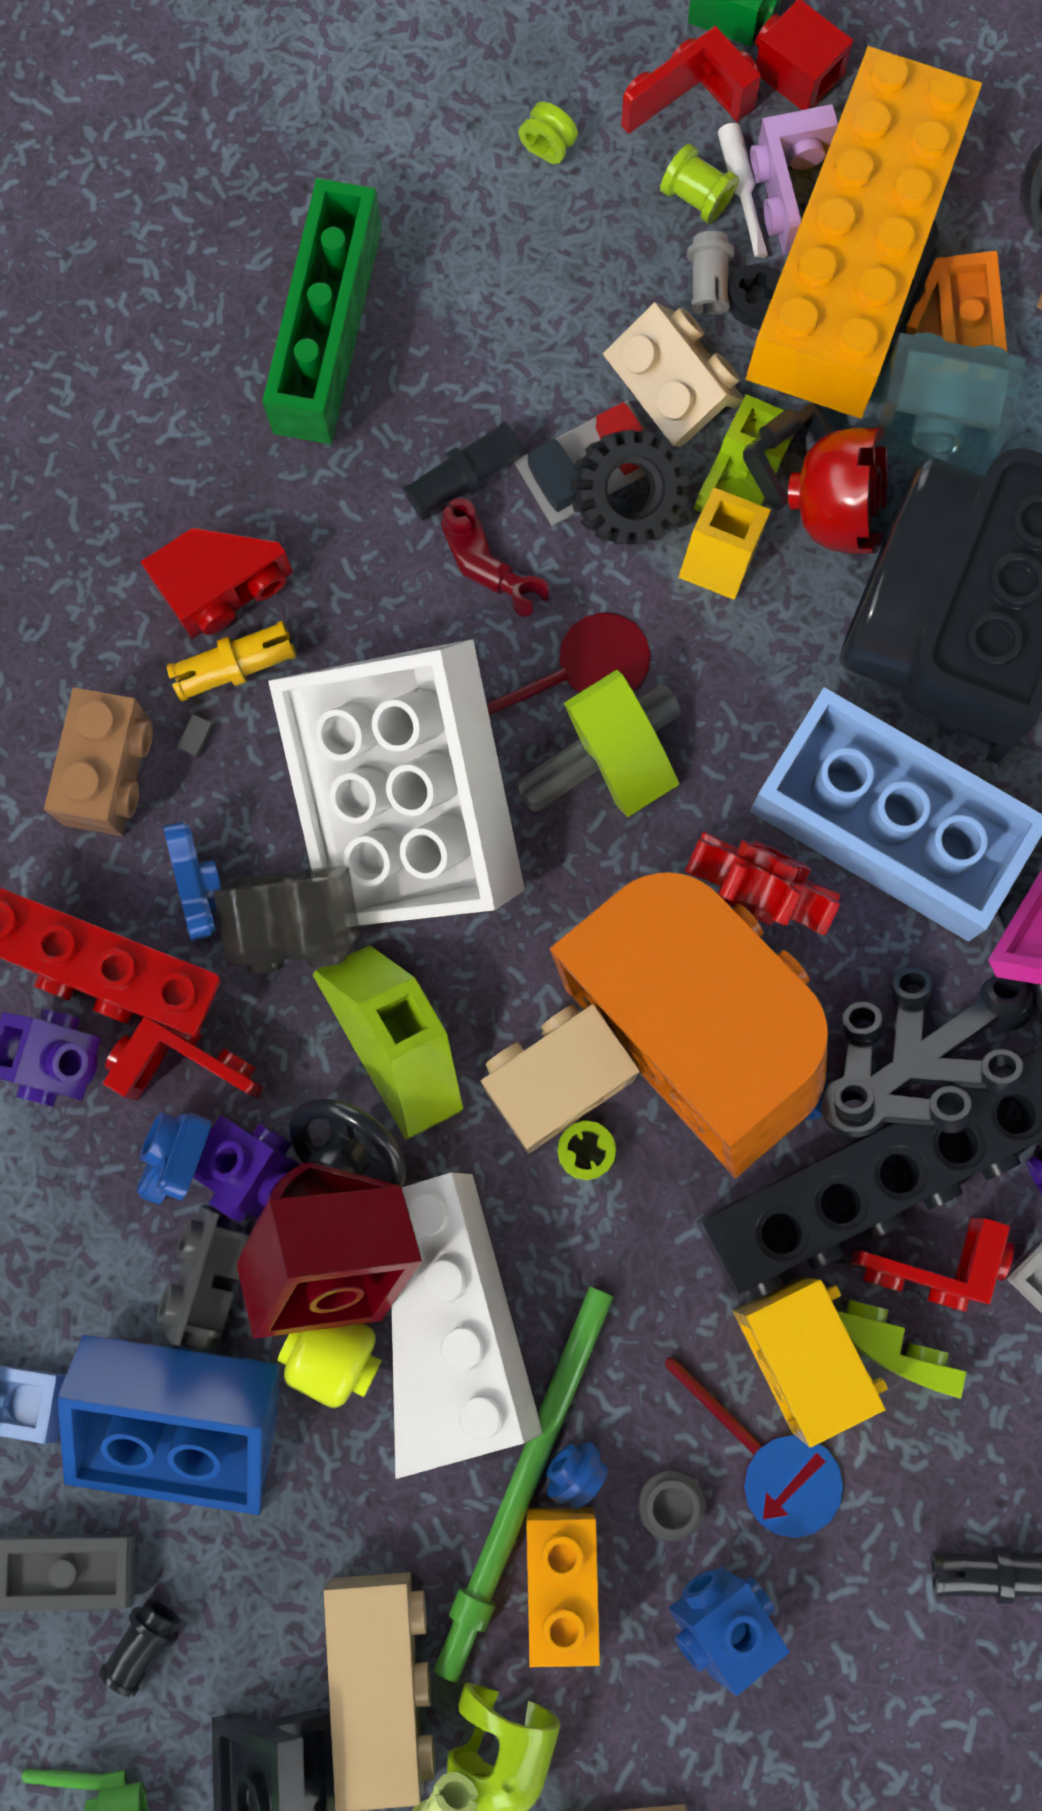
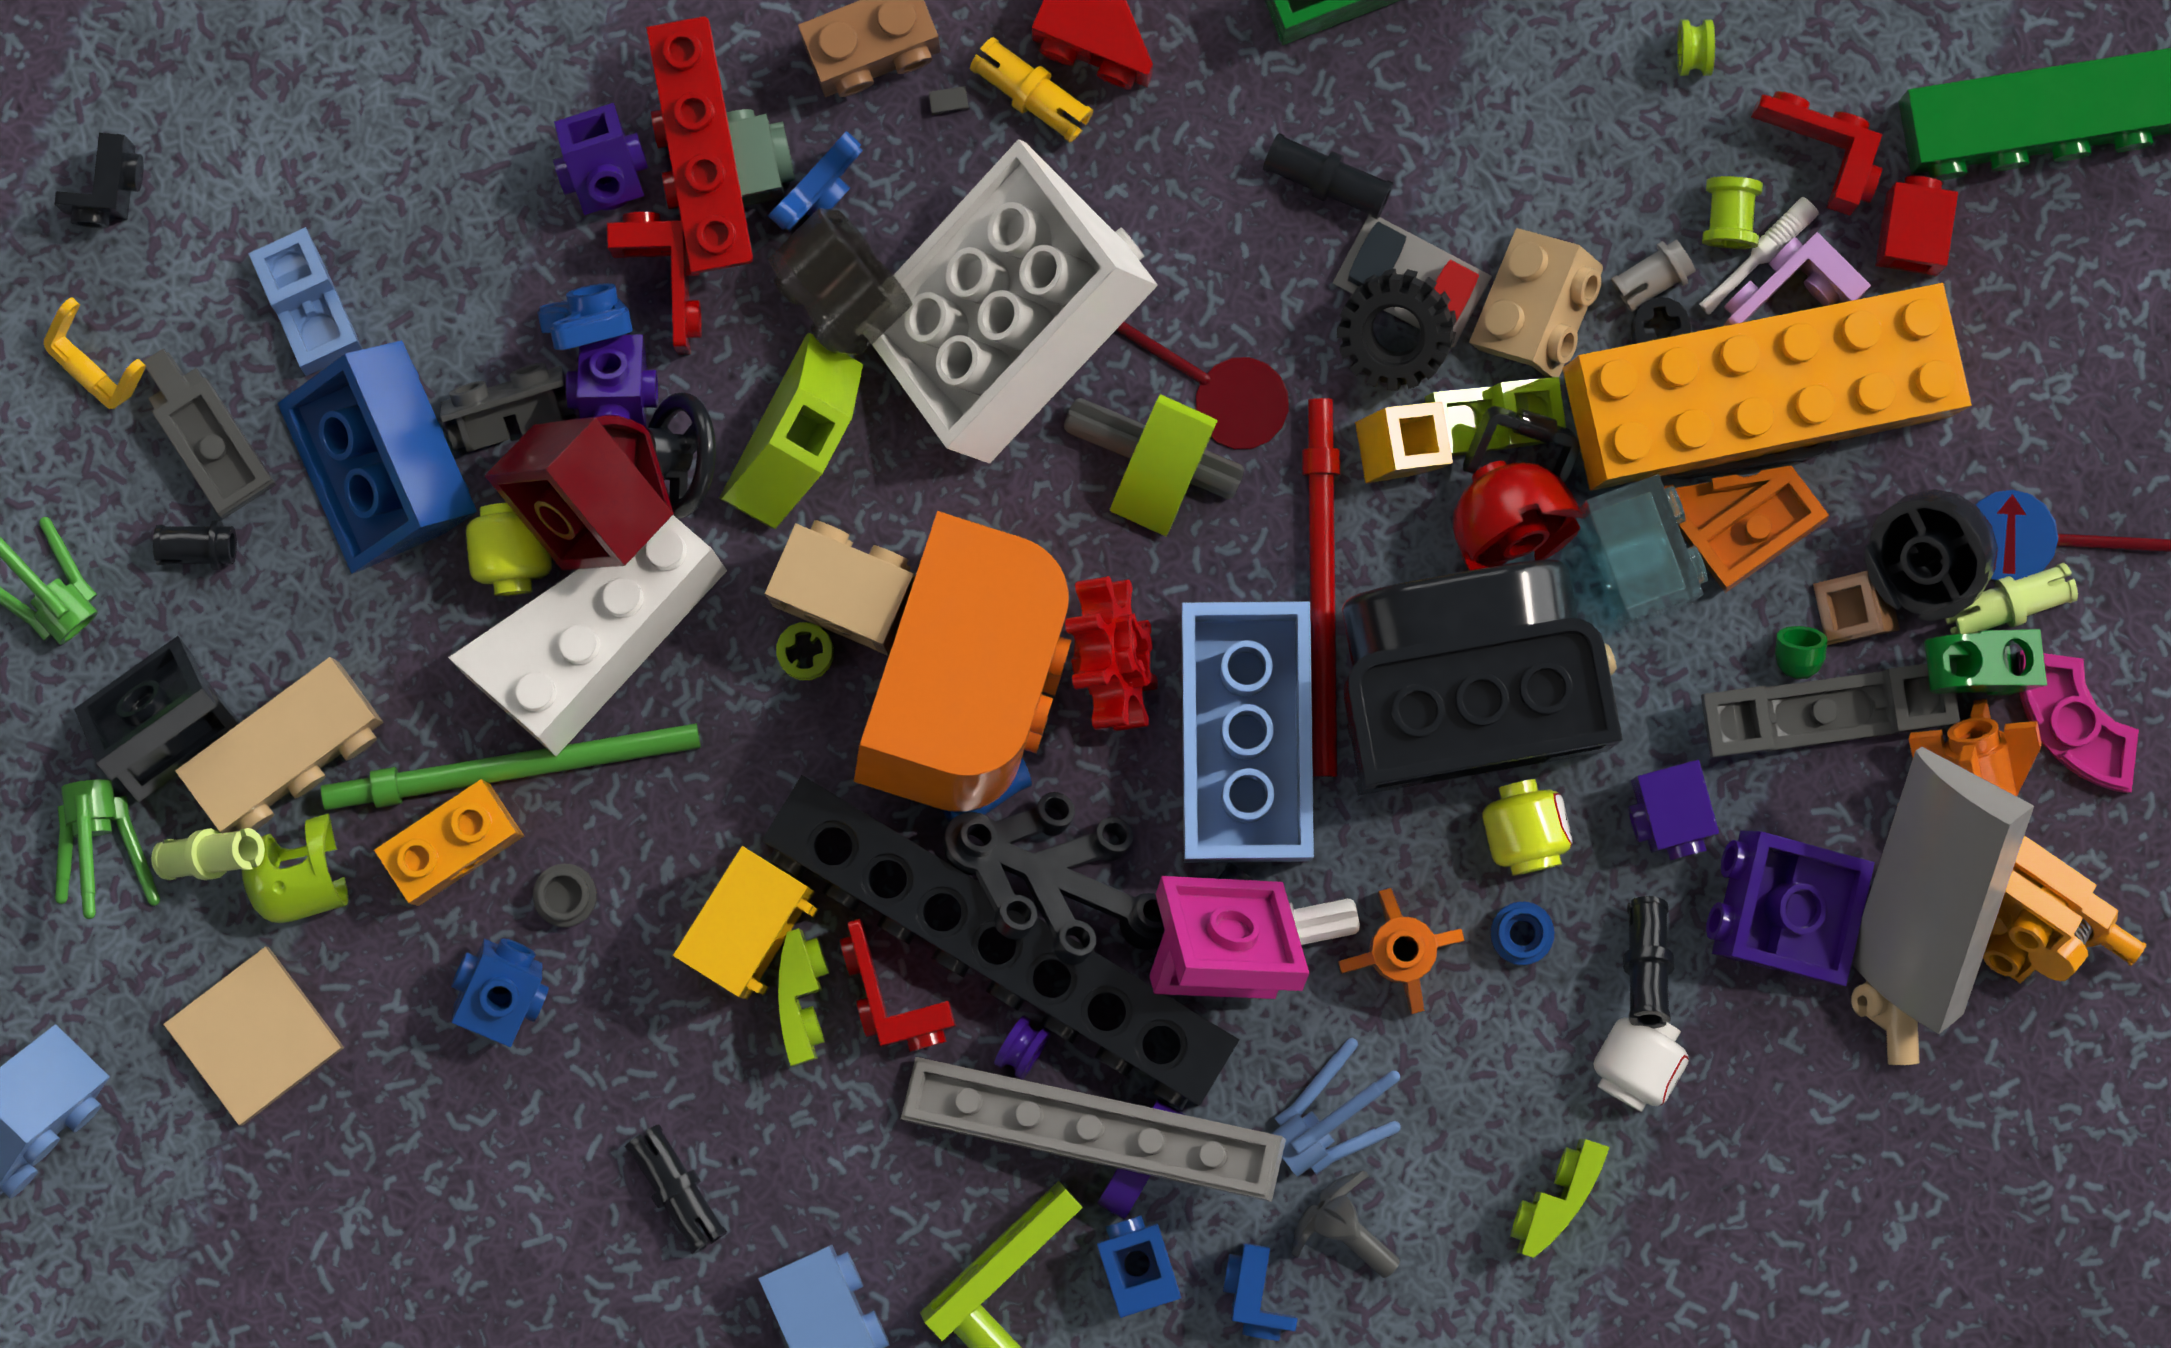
camera: 55 degrees right, 5 degrees up
(136, 915) = (760, 156): none -> sand green brick
(476, 562) = (1254, 239): dark red arm -> none
(576, 1475) = (540, 802): blue plate -> none
(699, 622) = (1321, 464): none -> red bar
(785, 1482) = (640, 979): blue piece -> none

